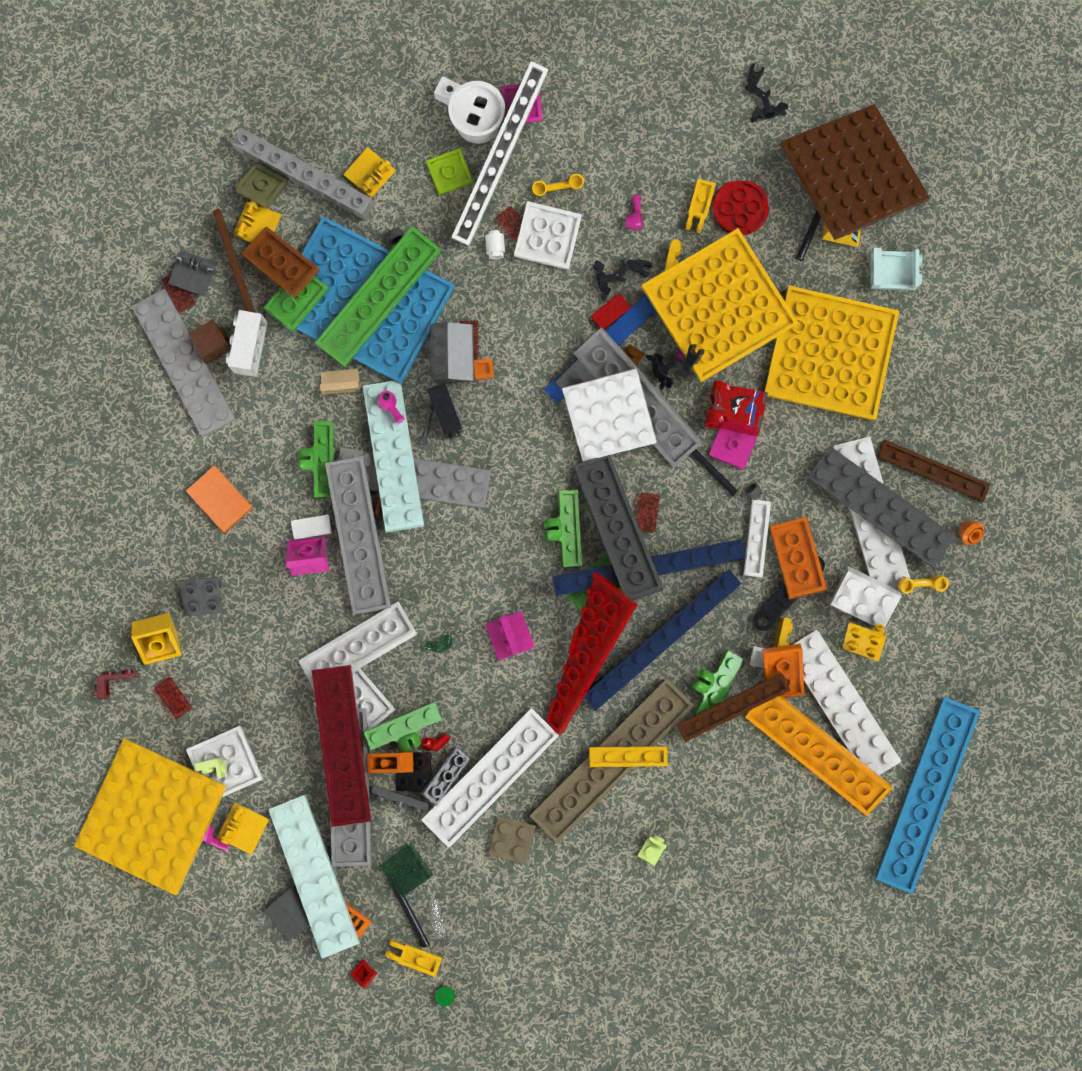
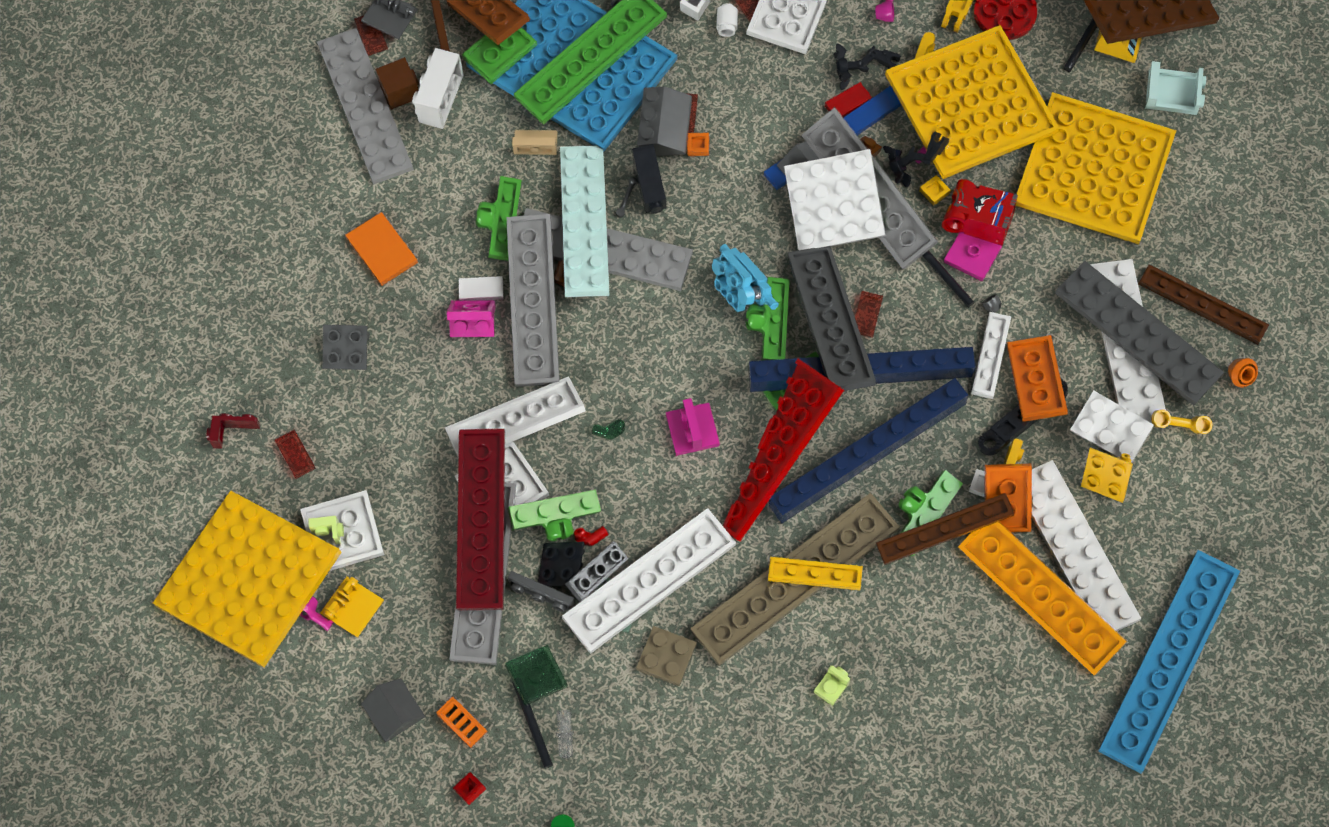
camera: 10 degrees right, 15 degrees down
(156, 638) = (286, 386): yellow slope -> none
(314, 876) = (427, 668): light aqua plate -> none
(390, 405) = (586, 162): dark pink bar -> none
(390, 762) = (534, 546): orange brick -> none
(415, 958) = (533, 777): yellow hinge -> none
(536, 498) = (741, 280): none -> medium azure piece
(694, 390) = (934, 190): none -> yellow plate

